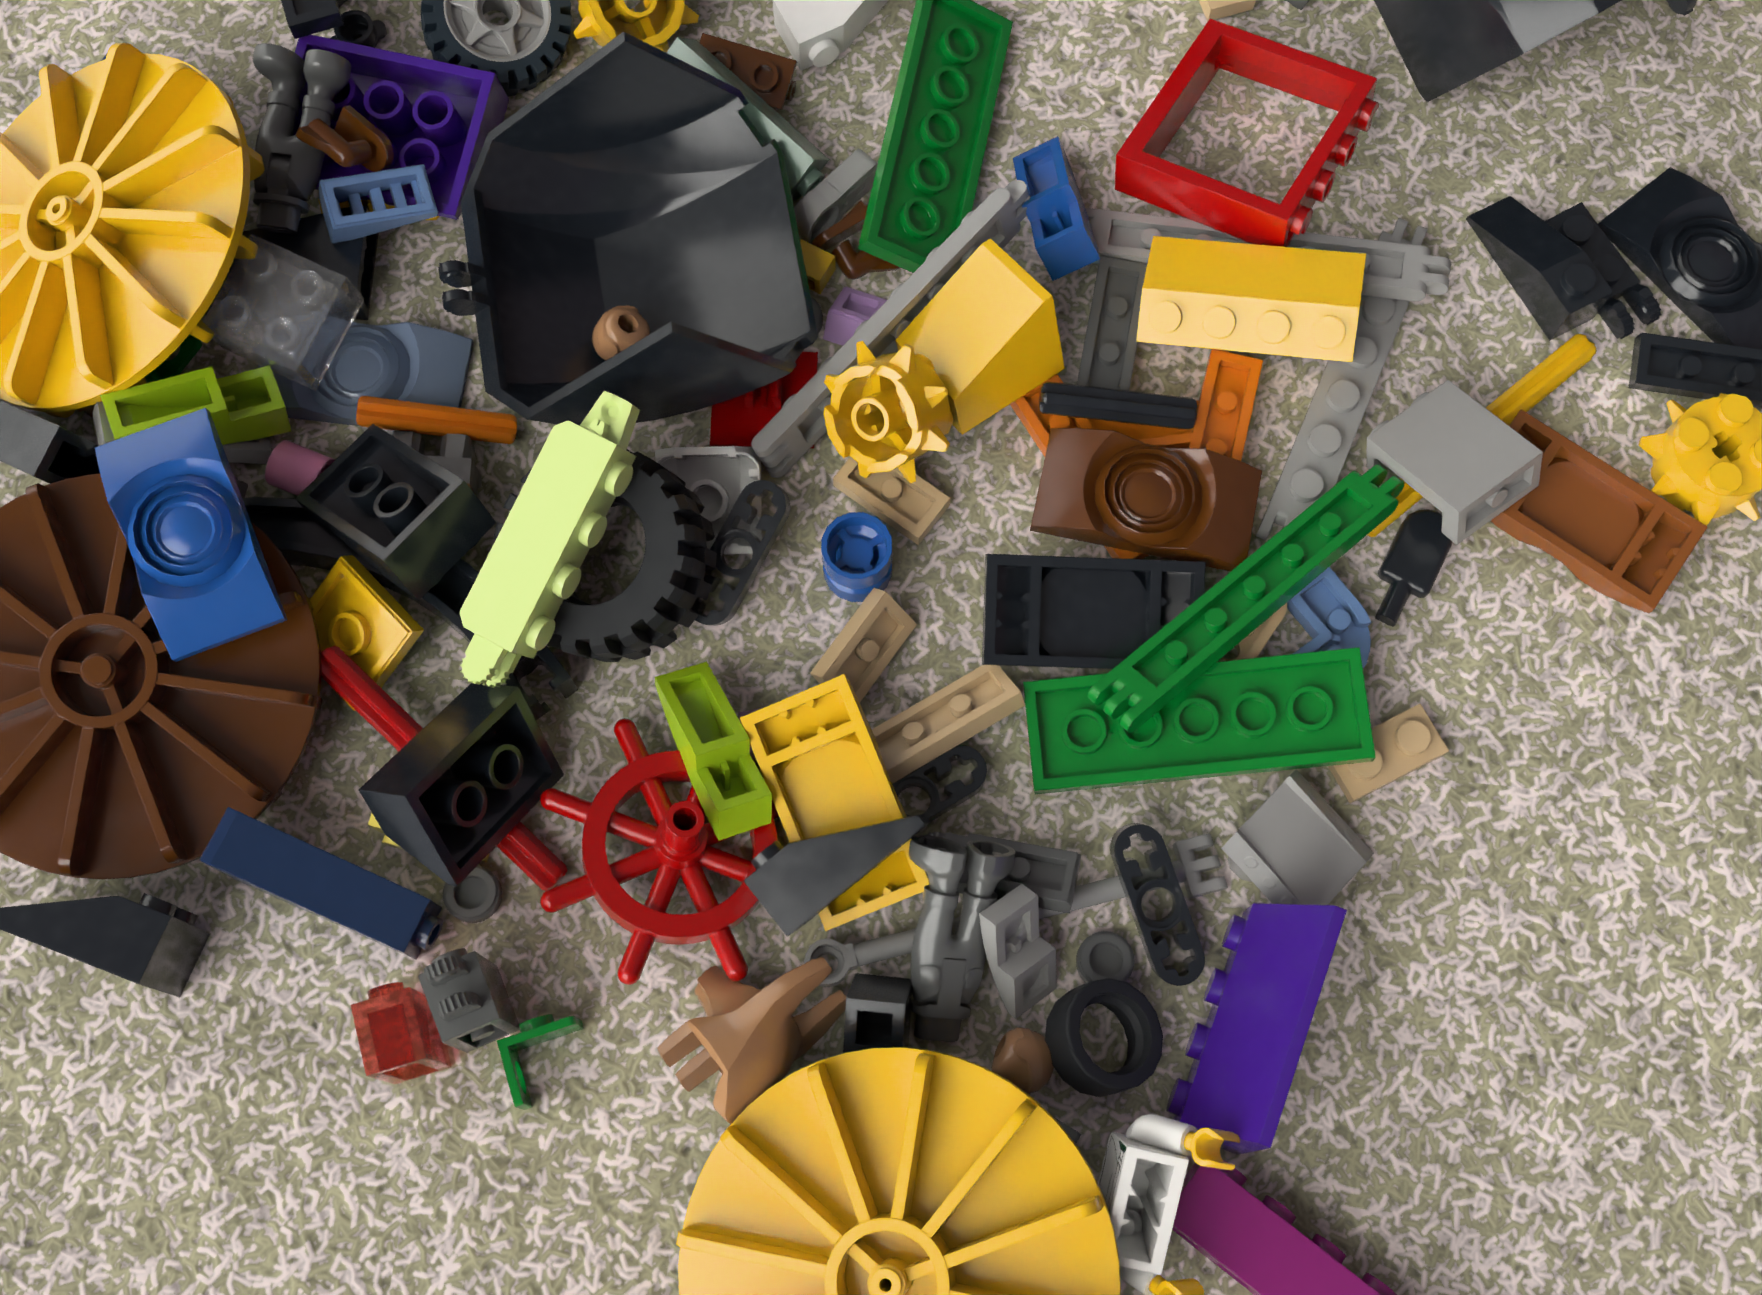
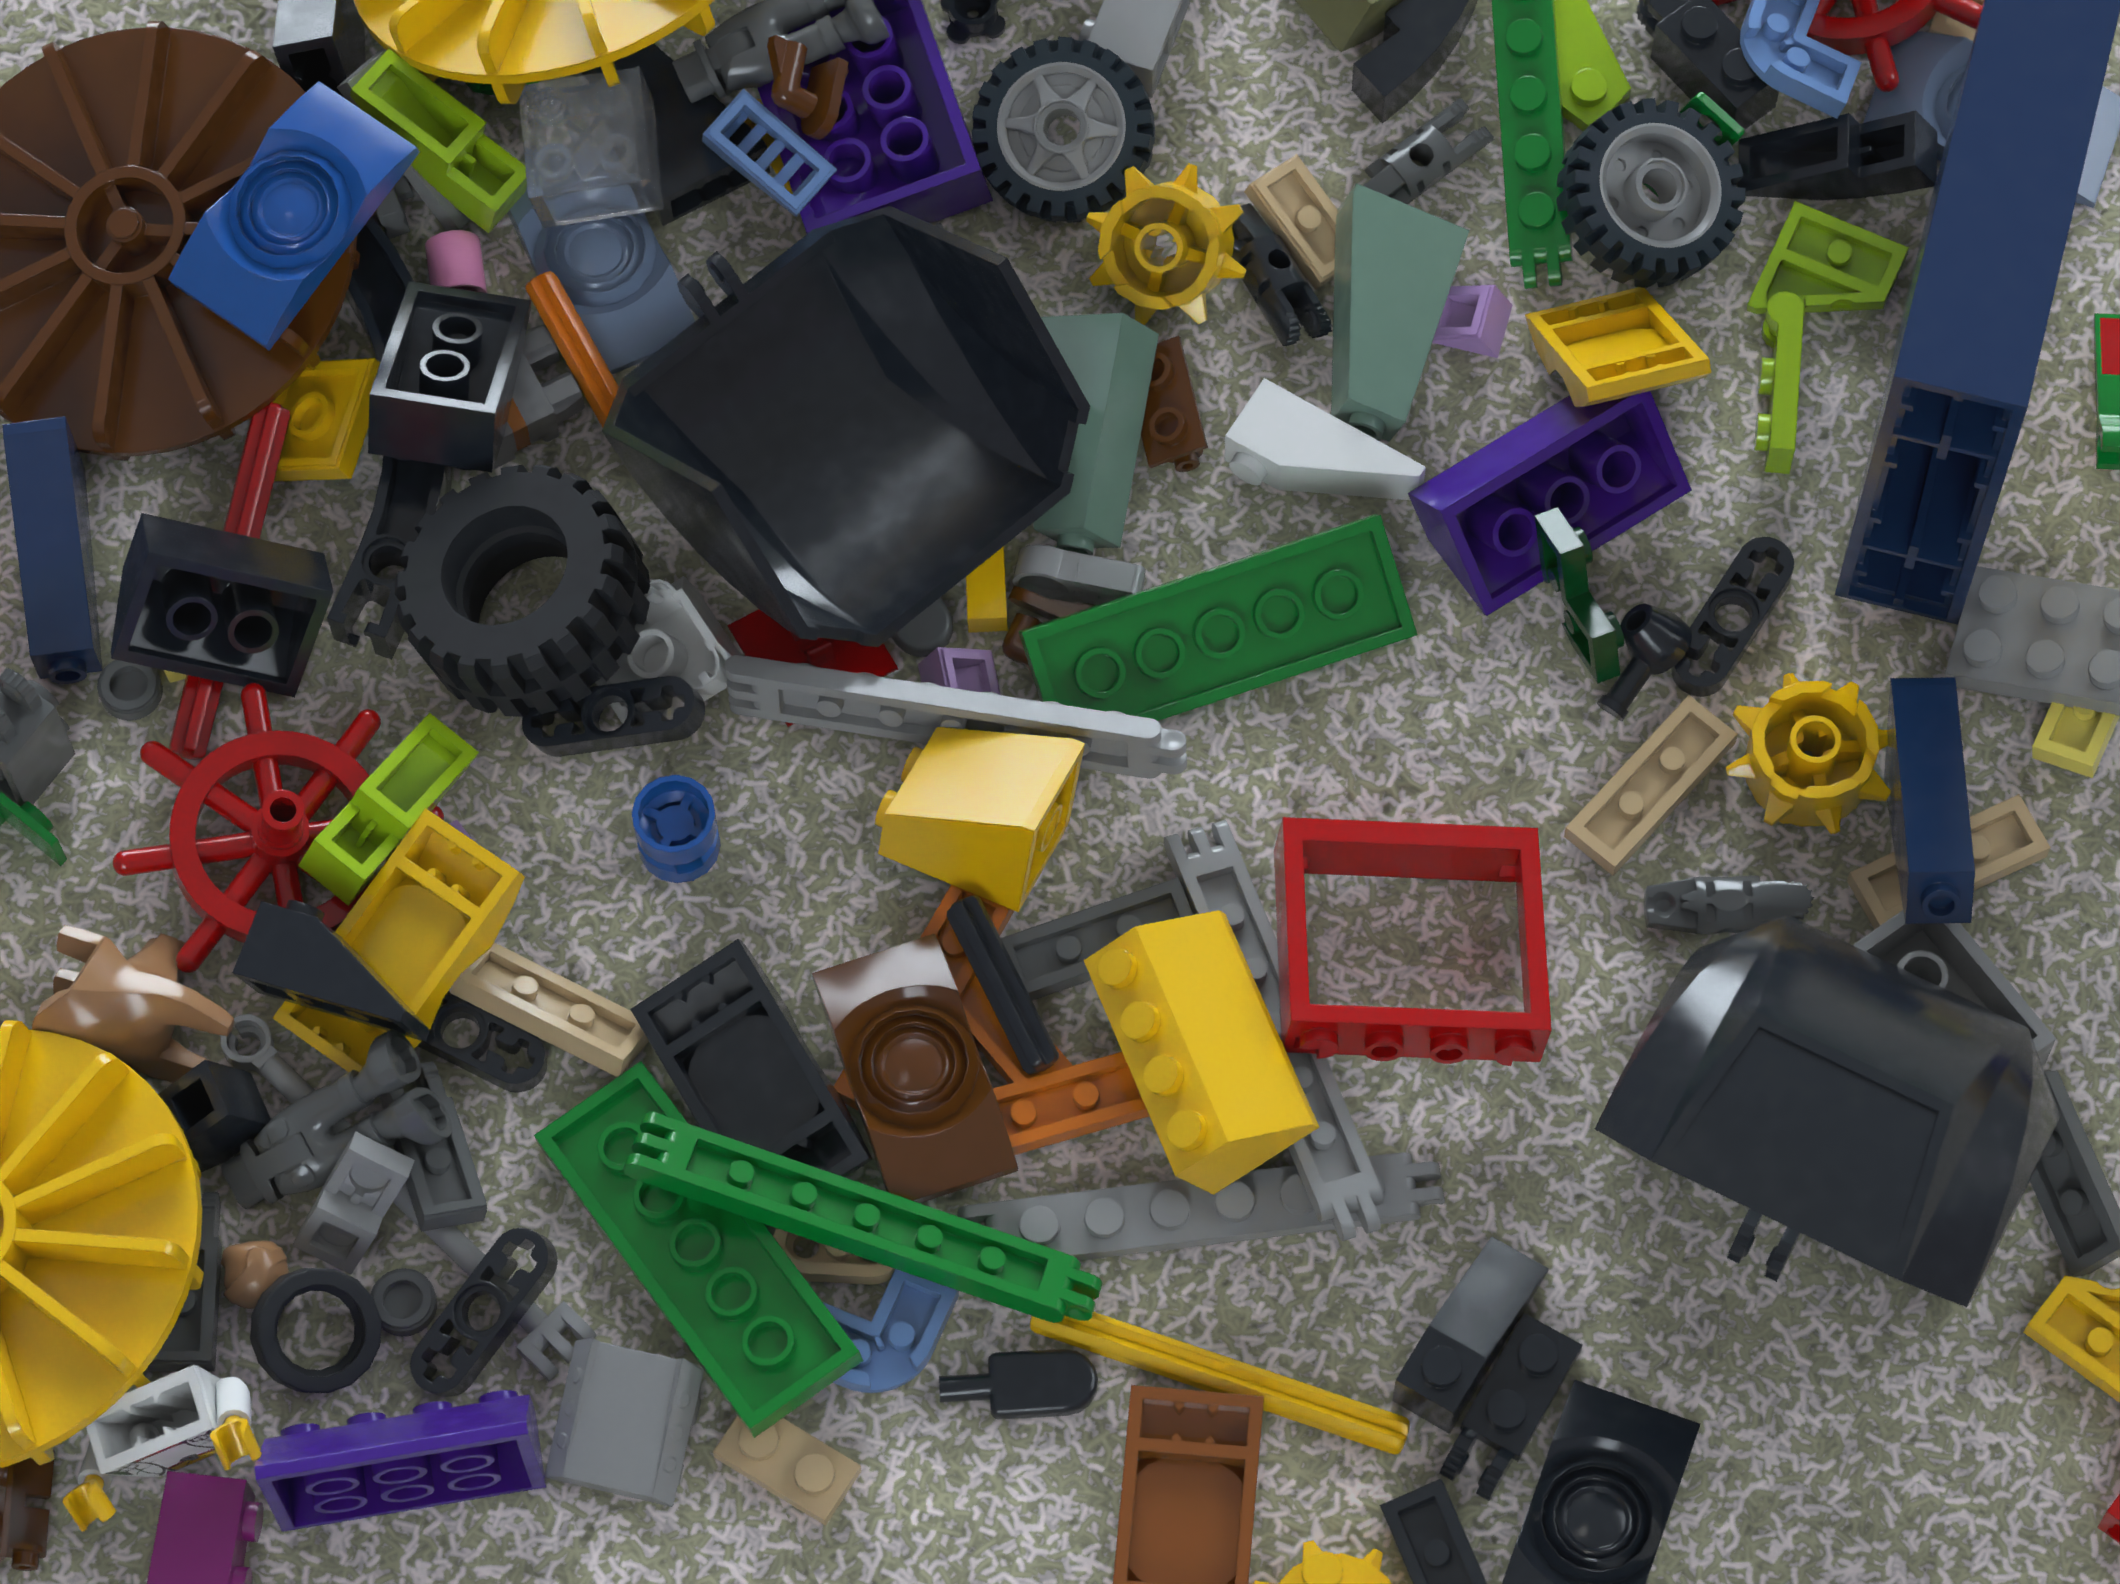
camera: 60 degrees right, 5 degrees down
(547, 539) = (479, 522): yellowish green hinge -> none
(618, 330) = (793, 465): medium nougat piece -> none
(866, 643) = (588, 893): tan plate -> none
(888, 411) = (834, 759): yellow brick -> none
(889, 496) = (777, 825): tan plate -> none
(1056, 210) = (1200, 799): blue slope -> none
(1457, 458) = (1147, 1350): light grey panel -> none

